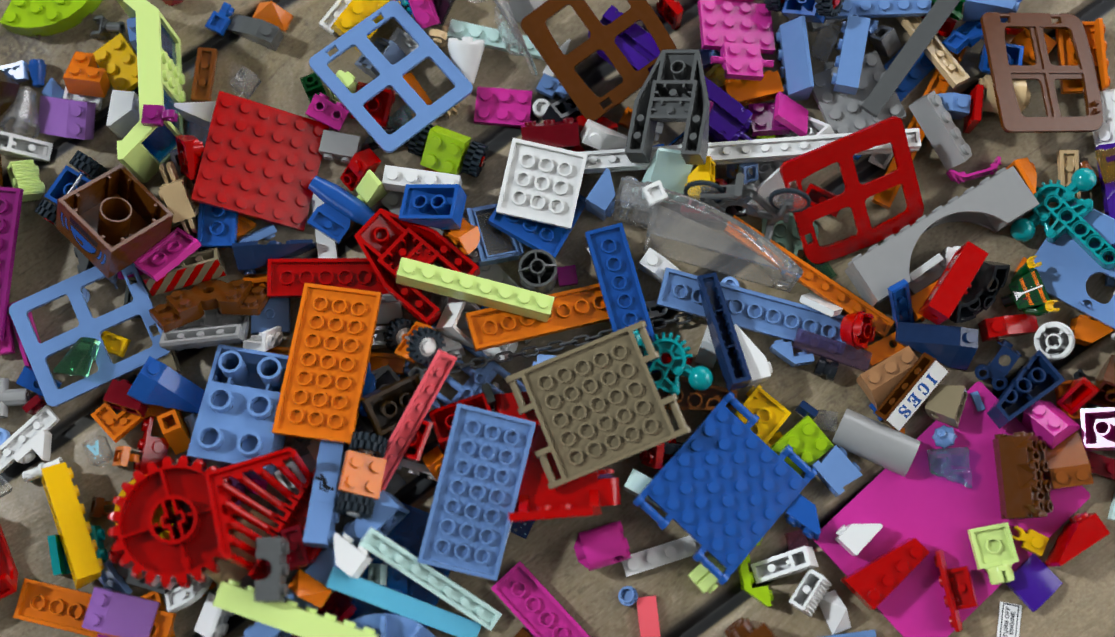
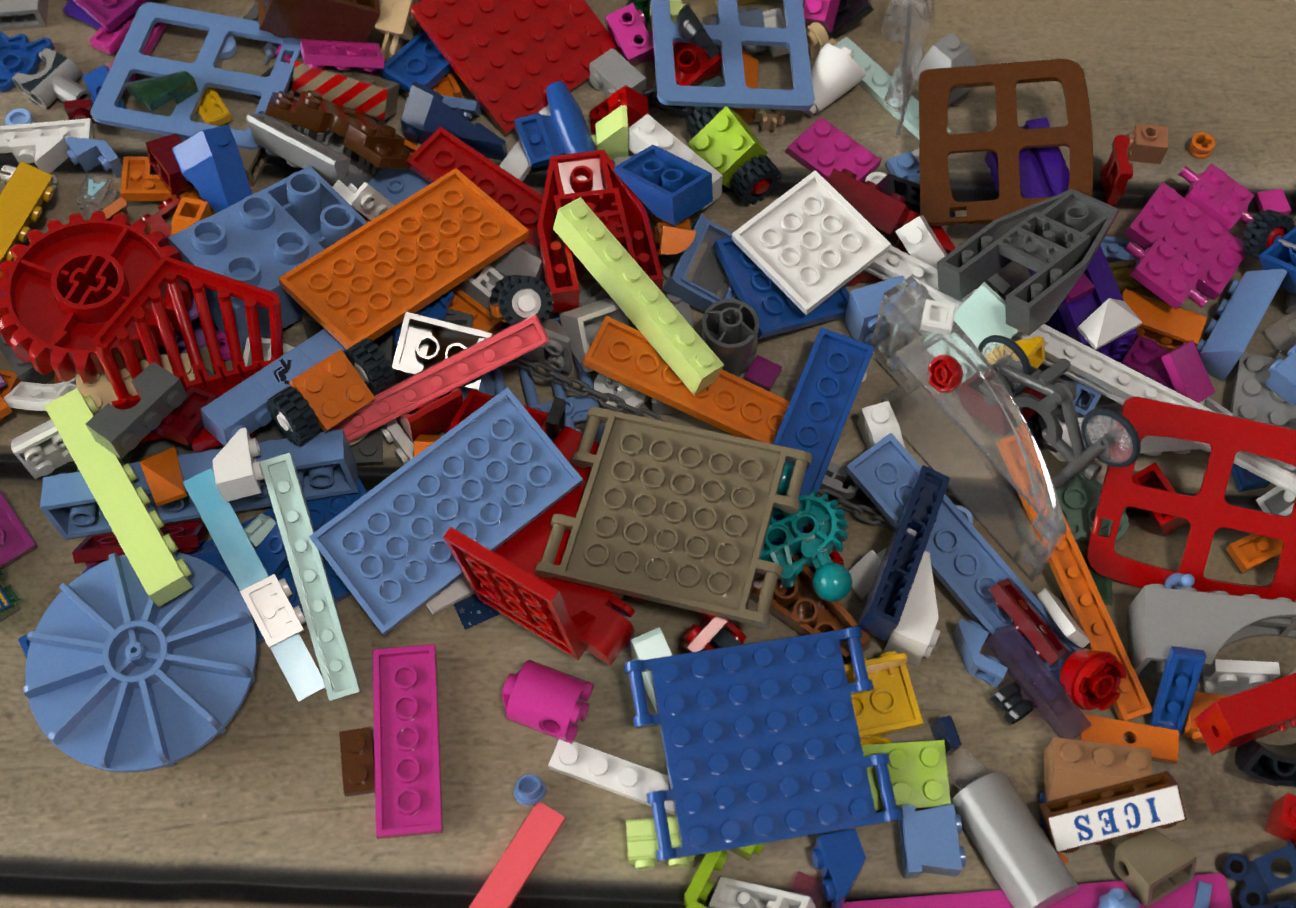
camera: 35 degrees right, 15 degrees down
(66, 427) = (92, 153): none -> medium blue slope
(372, 92) = (694, 32): none -> black piece
(427, 612) = (272, 610): none -> white bracket
(684, 227) = (945, 373): none -> red plate
(736, 119) = (1108, 323): none -> white slope
(807, 321) = (1028, 621): none -> dark red plate
(861, 242) = (1179, 581): none -> medium blue hinge
(948, 344) = (1213, 792): dark blue wedge -> none

